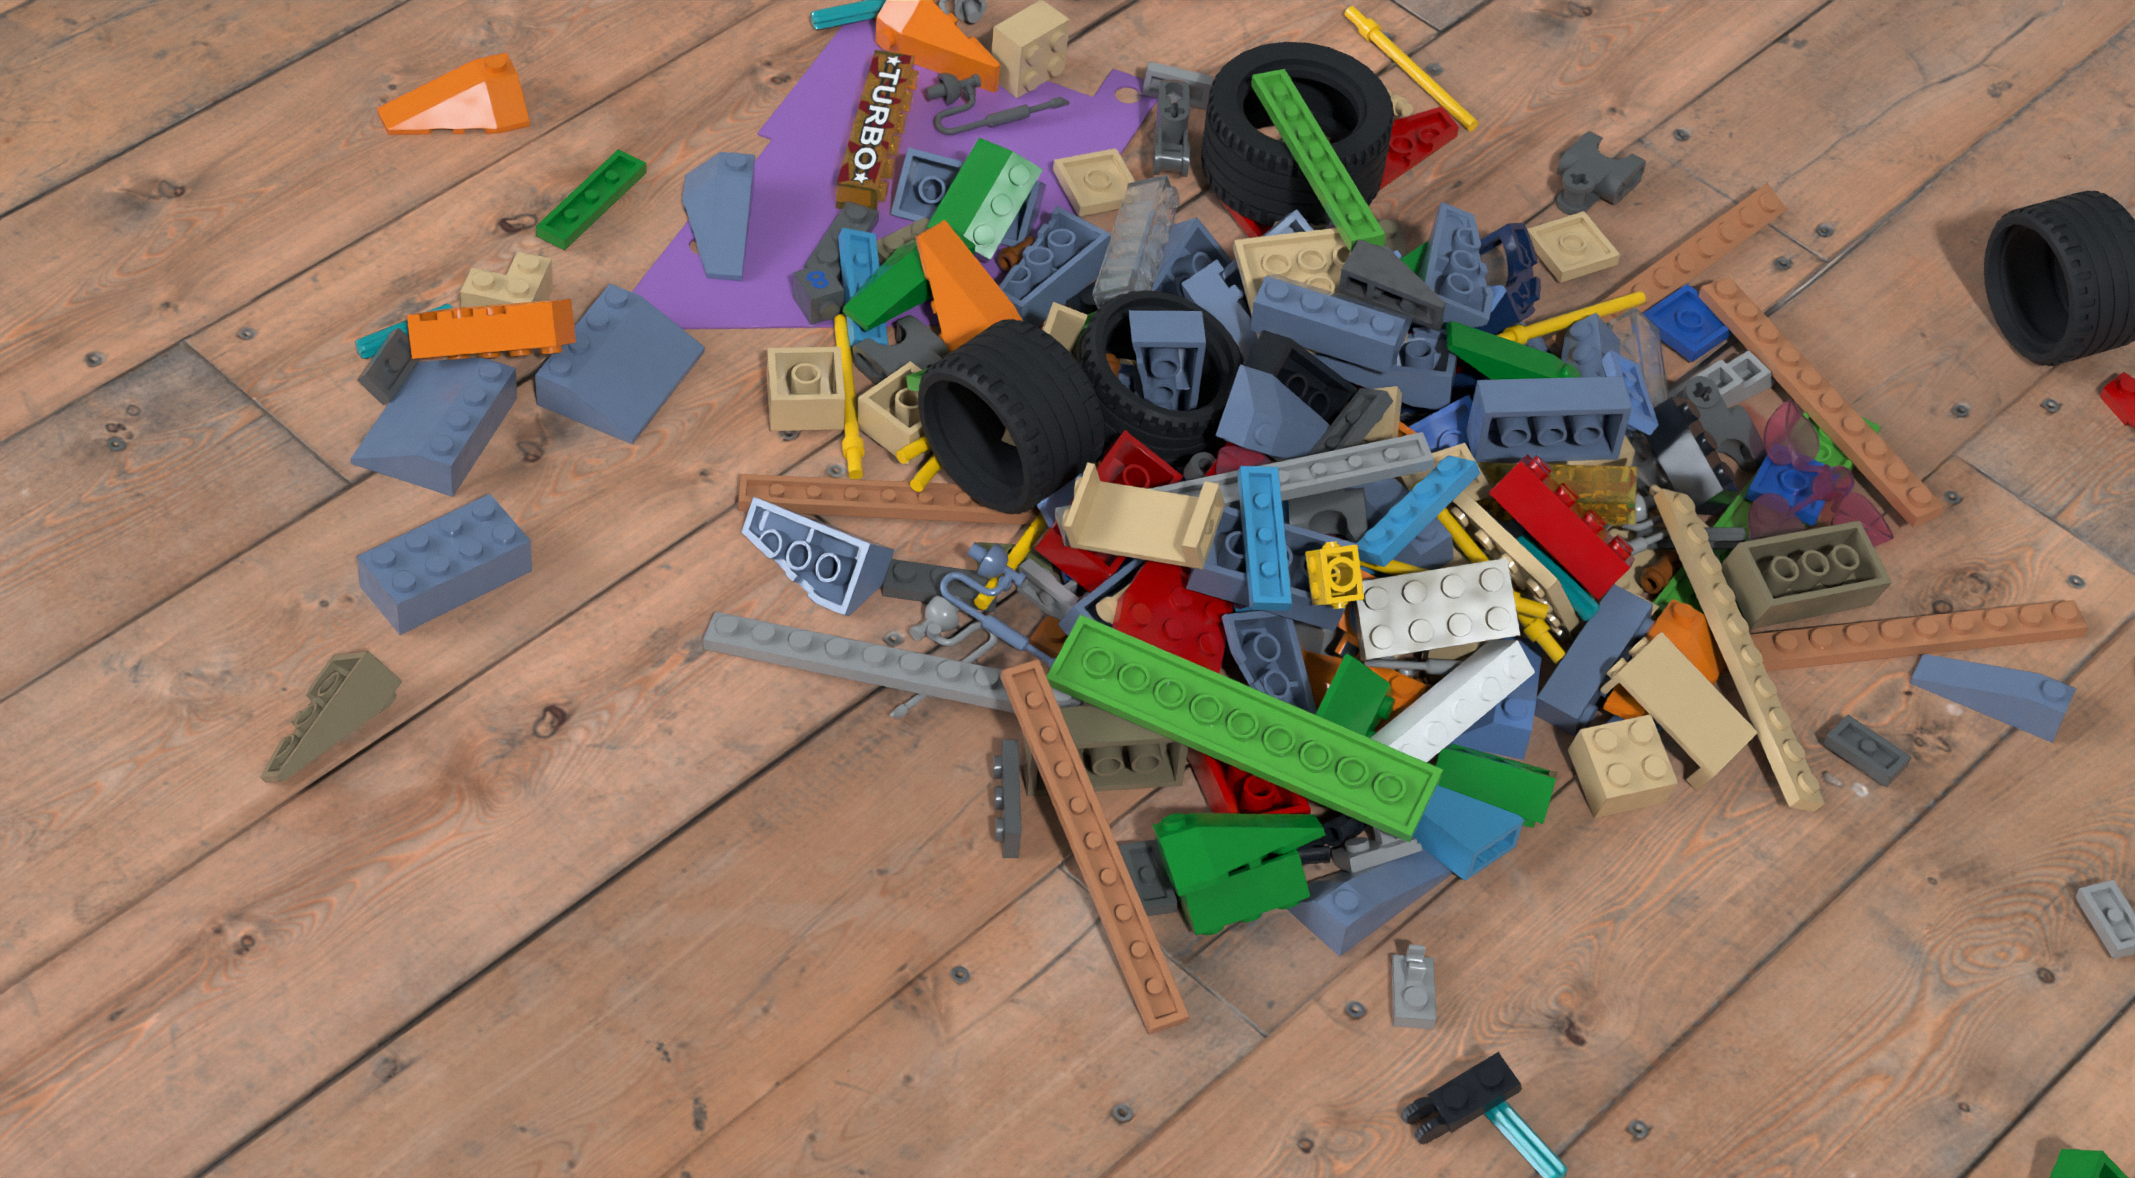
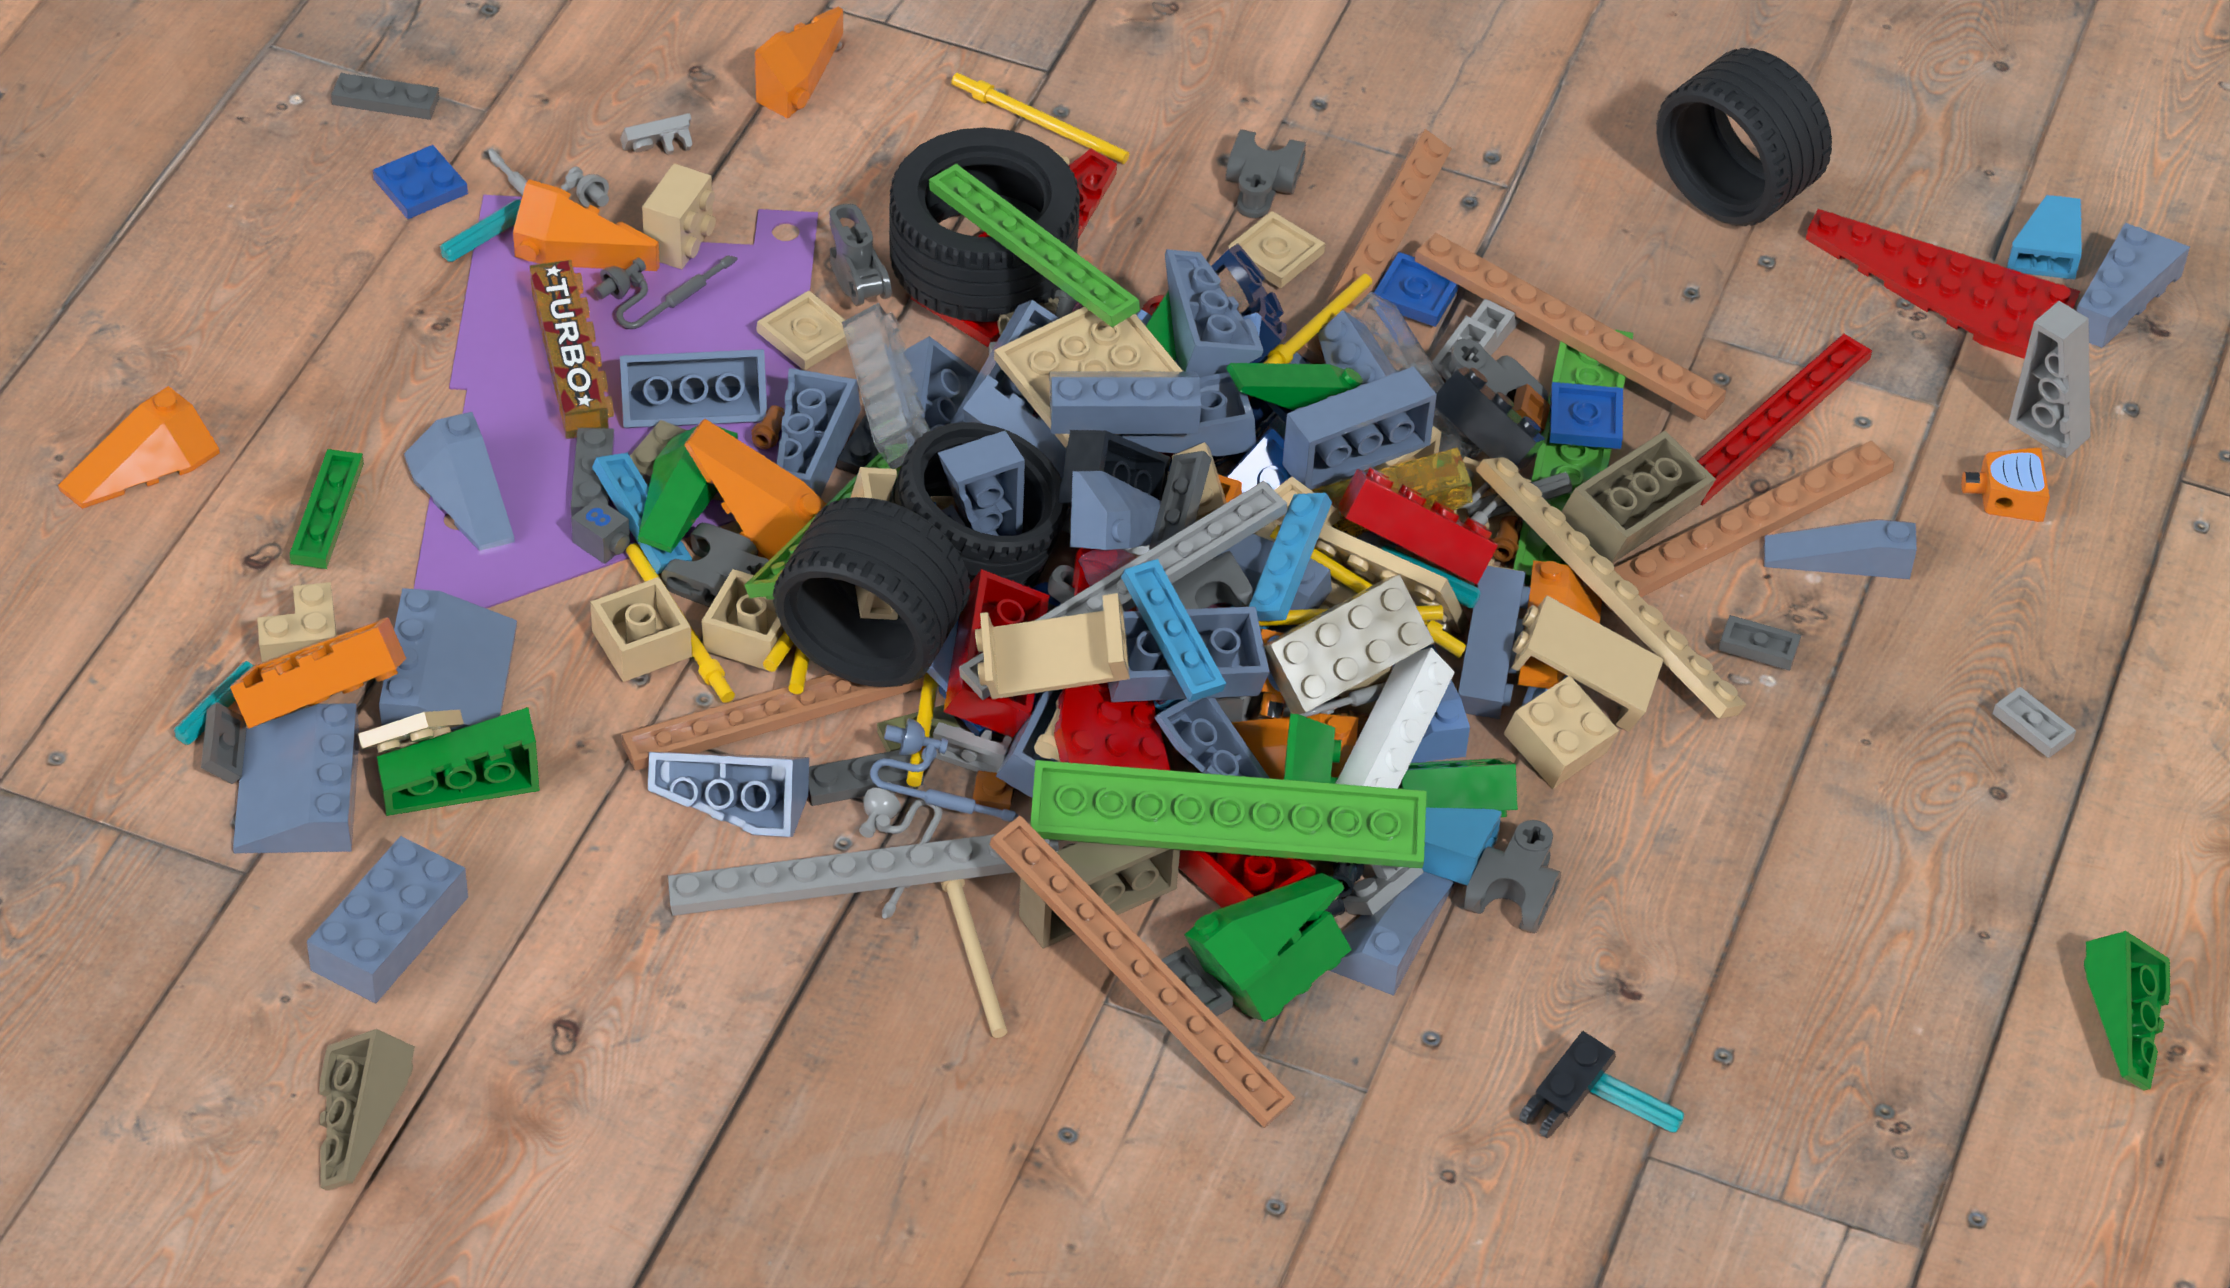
camera: 20 degrees left, 0 degrees up
(550, 406) = (411, 730): none -> tan plate
(582, 454) = (462, 766): none -> green wedge
(958, 781) = (975, 956): none -> tan bar
(987, 196) = (721, 380): green slope -> none
(1008, 798) = (1032, 956): dark grey plate -> none
(1198, 83) = (814, 207): light grey panel -> none
(1334, 575) = (1253, 643): yellow head -> none
(1387, 282) = (1161, 346): flat silver slope -> none
(1413, 989) = (1474, 1001): light grey plate -> none
(1514, 884) = (1517, 875): none -> dark grey piece
(1642, 412) = (1399, 358): medium blue plate -> none
(1743, 461) = (1531, 404): none -> dark orange plate
(1793, 439) = (1573, 375): clear pink plant -> none
(1995, 546) = (1783, 411): none -> red tile

